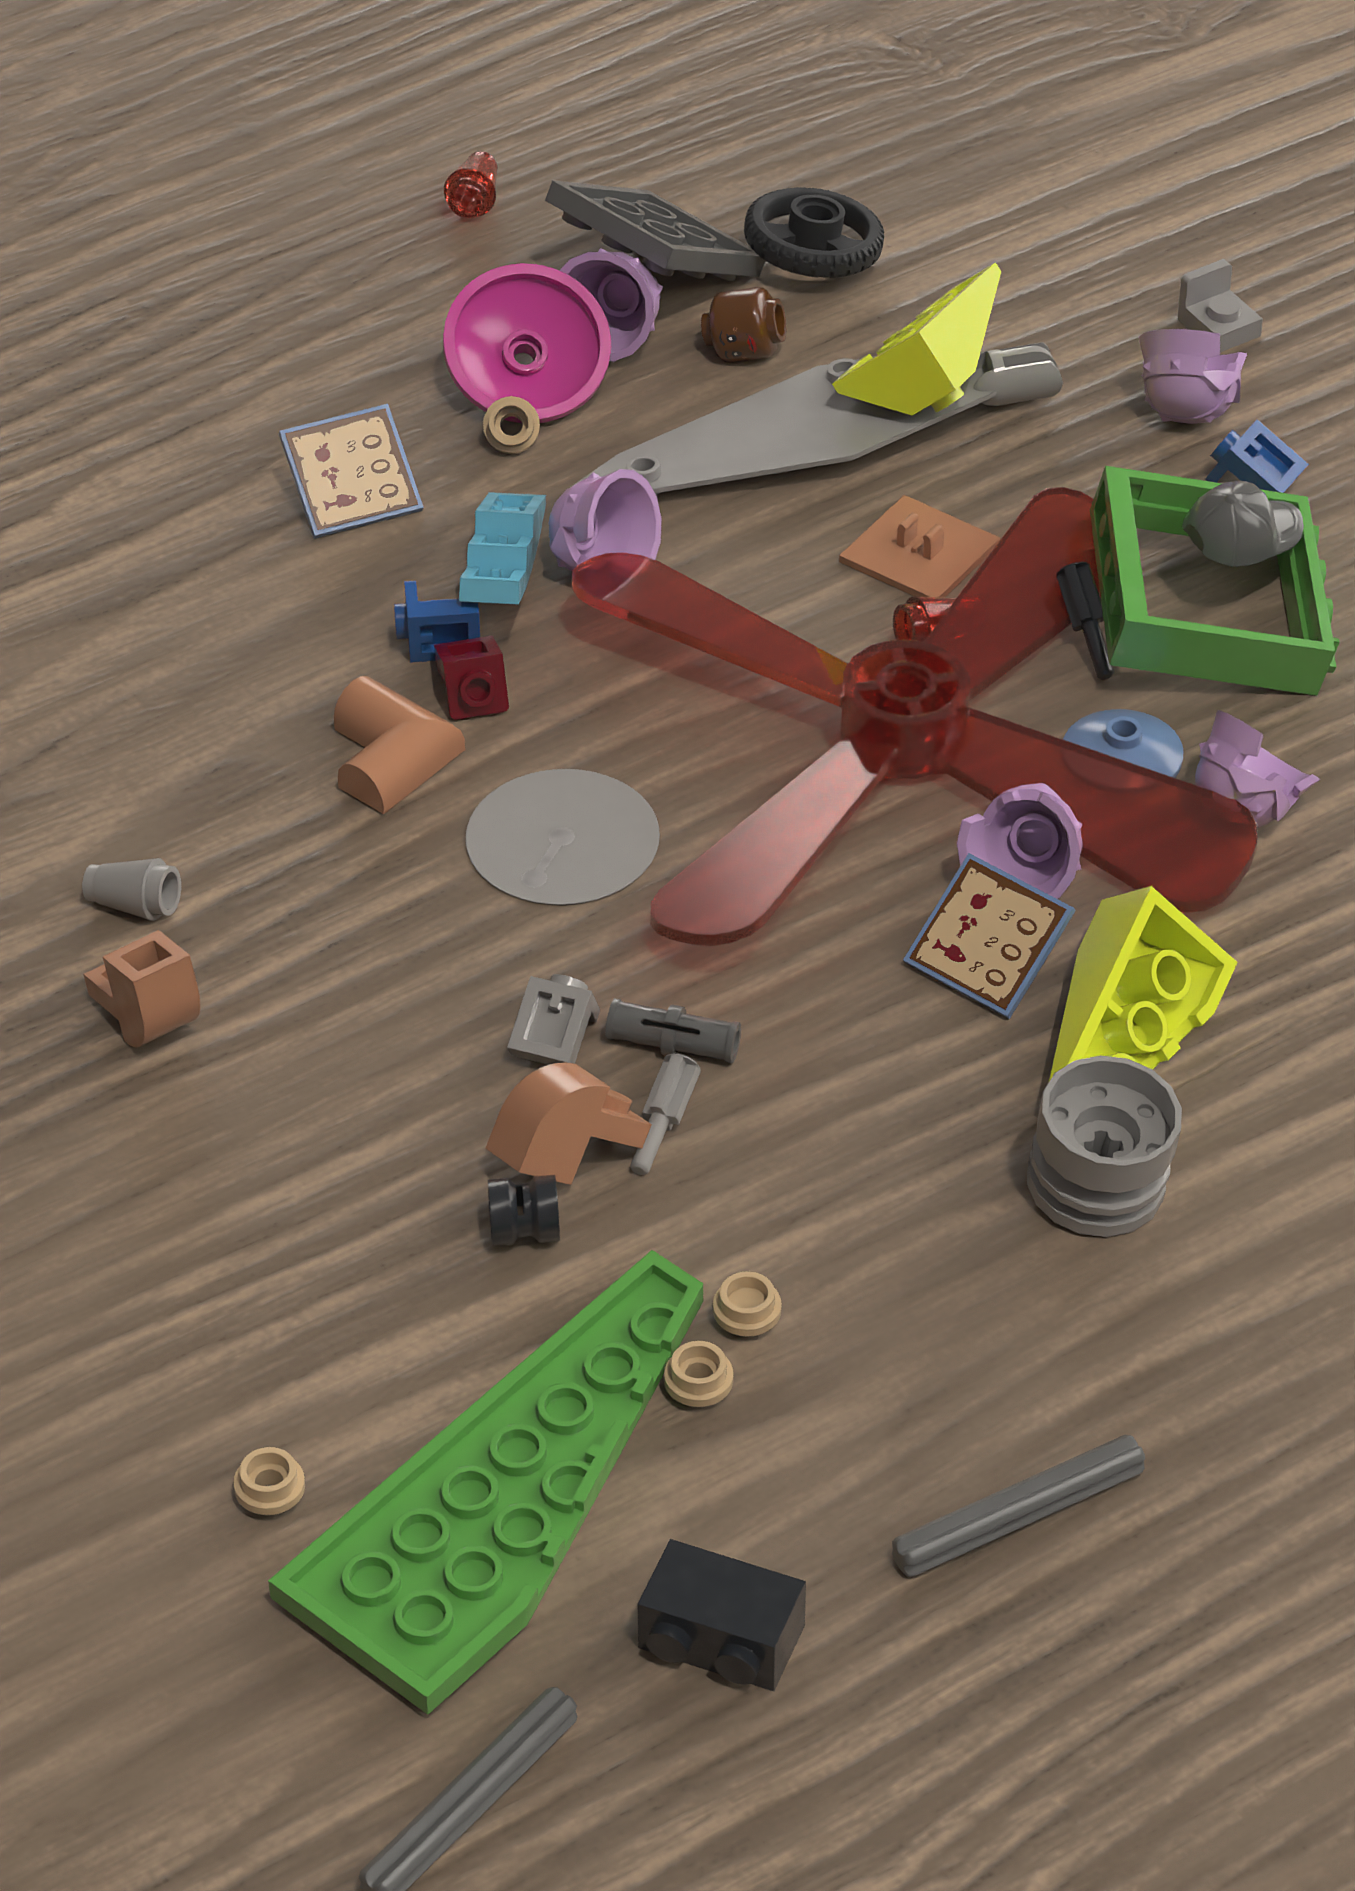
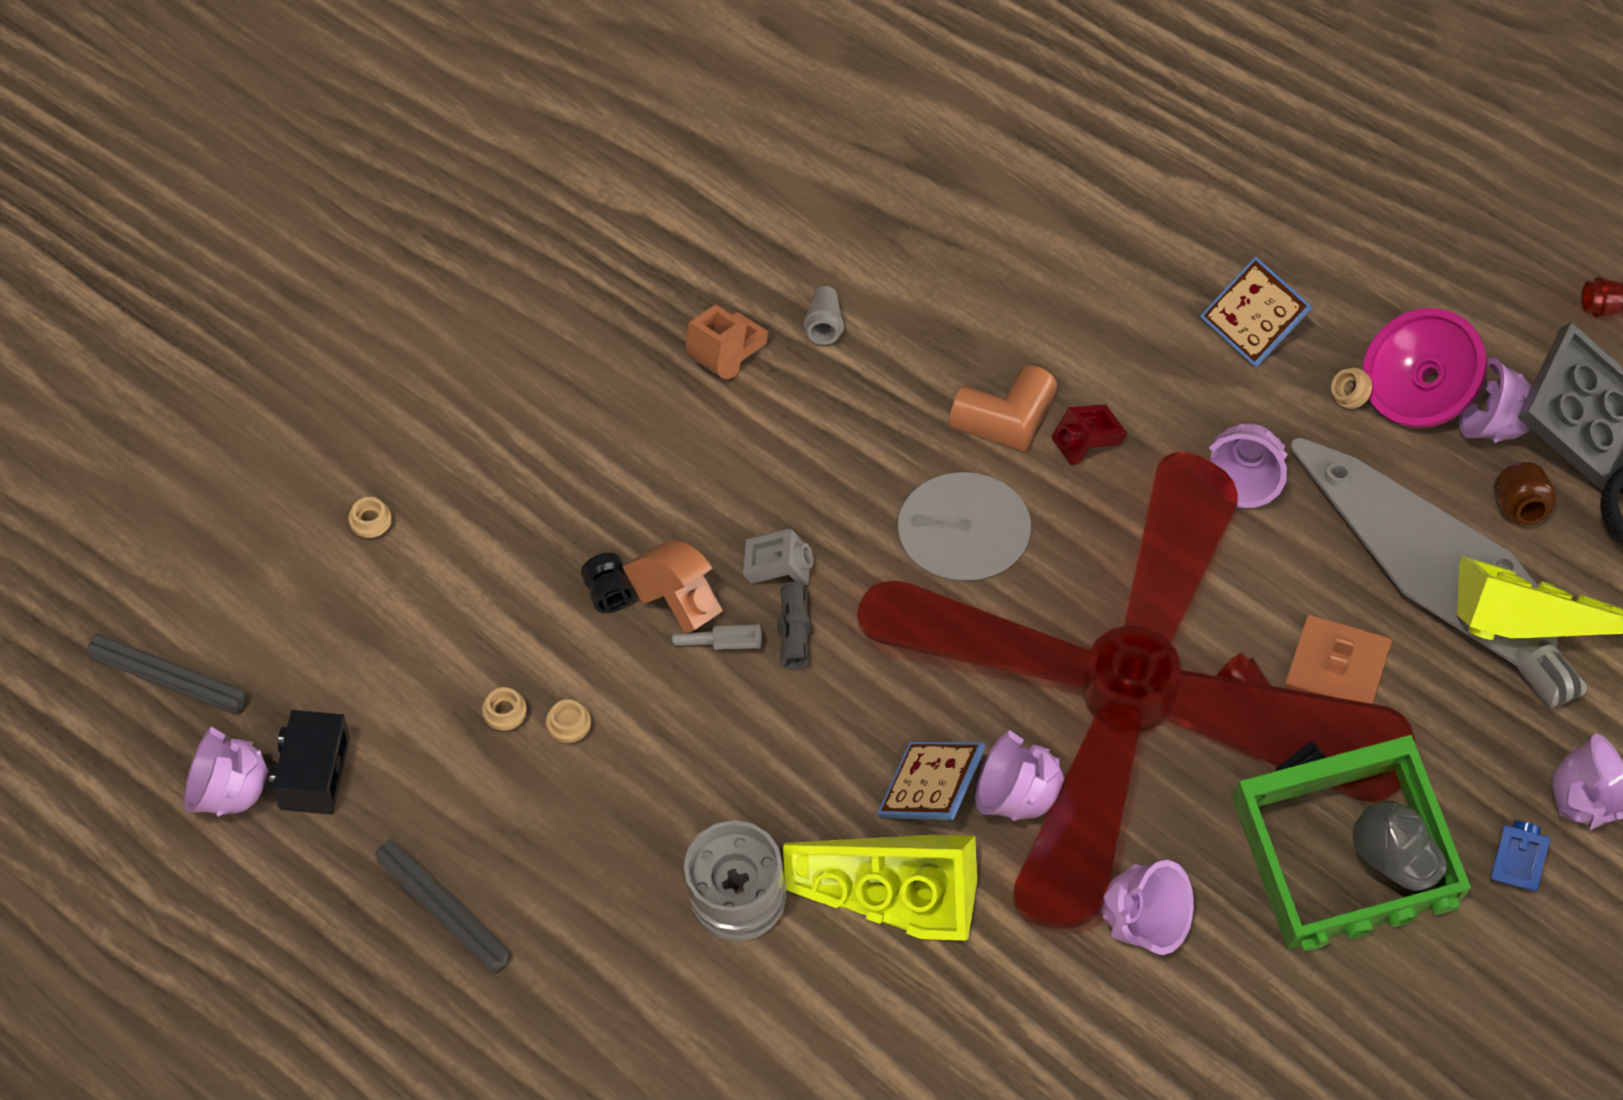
camera: 75 degrees right, 10 degrees up
(433, 622) = (1122, 394): blue bracket -> none
(477, 1521) = (355, 621): bright green wing -> none
(502, 548) = (1206, 414): medium azure slope -> none
(720, 1723) = (224, 775): none -> lavender helmet
(1130, 737) = (1154, 841): medium blue dish -> none

